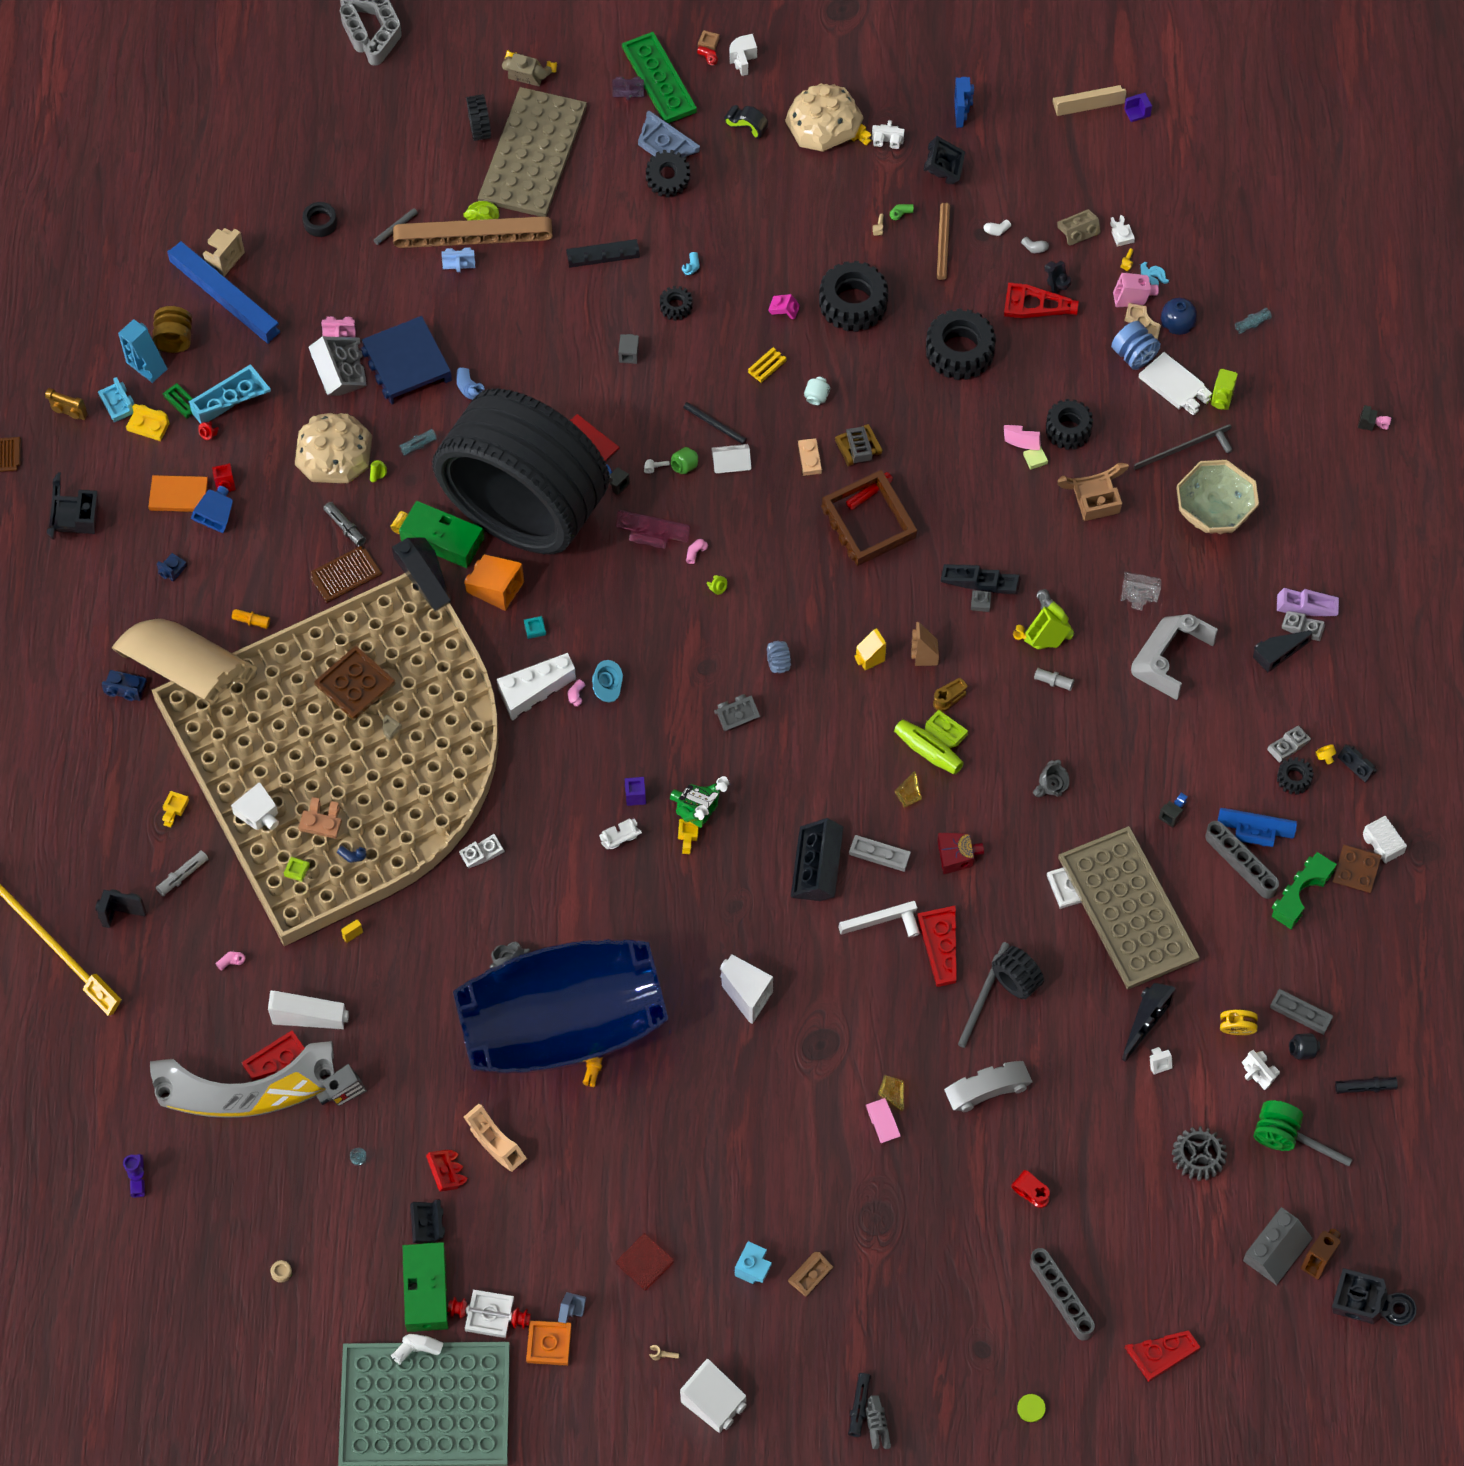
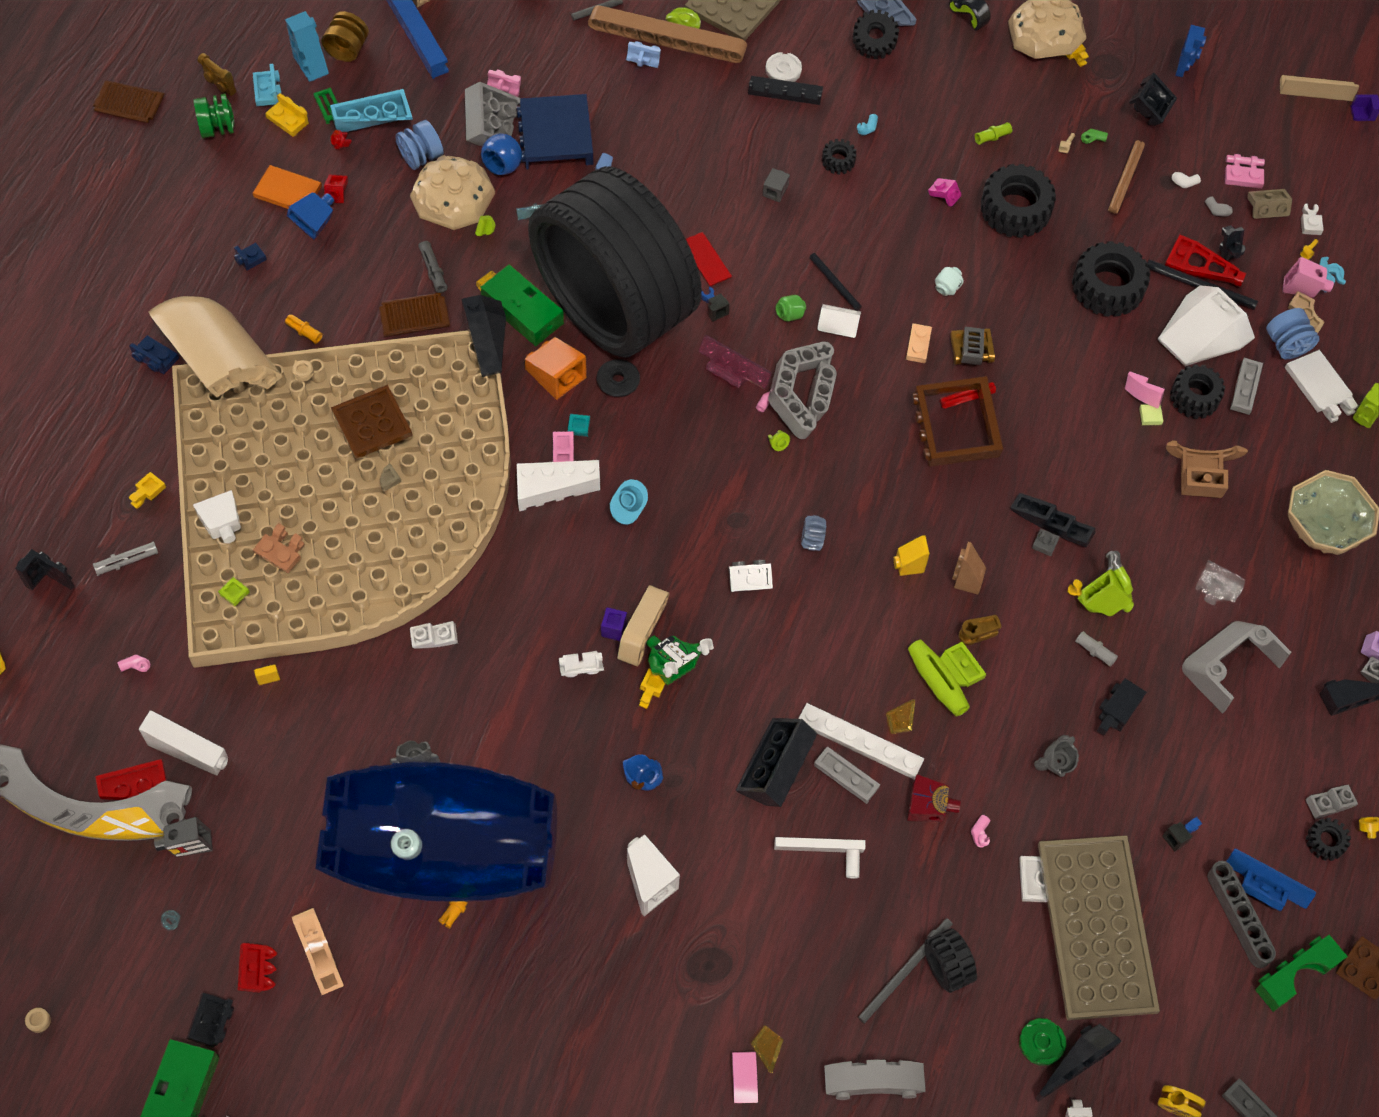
camera: 15 degrees right, 0 degrees up
(72, 513) = (178, 176): black piece -> none
(82, 445) = (214, 116): none -> green wheel
(272, 656) = (302, 370): none -> tan tile
(286, 413) = (419, 144): none -> medium blue wheel
(351, 857) = (293, 597): dark blue arm -> none
(366, 398) = (501, 154): none -> blue wheel
(529, 651) = (563, 447): none -> bright pink slope
(534, 1021) = (399, 842): none -> light aqua head
(557, 583) = (618, 388): none -> black wheel
(573, 693) = (592, 502): bright pink arm -> none
(593, 231) = (783, 67): none -> white tile
(650, 464) = (755, 302): white hand -> none
(660, 784) = (641, 625): none -> tan beam
(708, 906) = (643, 772): none -> blue hair
(732, 557) = (803, 418): none -> light grey piece
(763, 366) = (905, 239): yellow tile -> none
(809, 236) = (993, 133): none -> lime pin
(883, 821) = (862, 741): none -> white plate
(888, 134) = (1106, 61): white hips -> none
(939, 936) = (878, 893): red wing -> none
(1005, 864) = (978, 832): none -> bright pink arm
(1042, 323) = (1196, 282): none -> black piece
(1047, 207) = (1244, 176): none -> bright pink plate
(1058, 362) = (1206, 327): none -> white wedge
(1090, 721) = (1120, 706): none -> black hinge
(1110, 405) = (1246, 386): none -> light grey plate
(1113, 1014) = (1042, 1042): none -> green tile
(1179, 316) = (1346, 319): dark blue cylinder -> none
(1218, 433) = (1352, 448): dark grey piece -> none

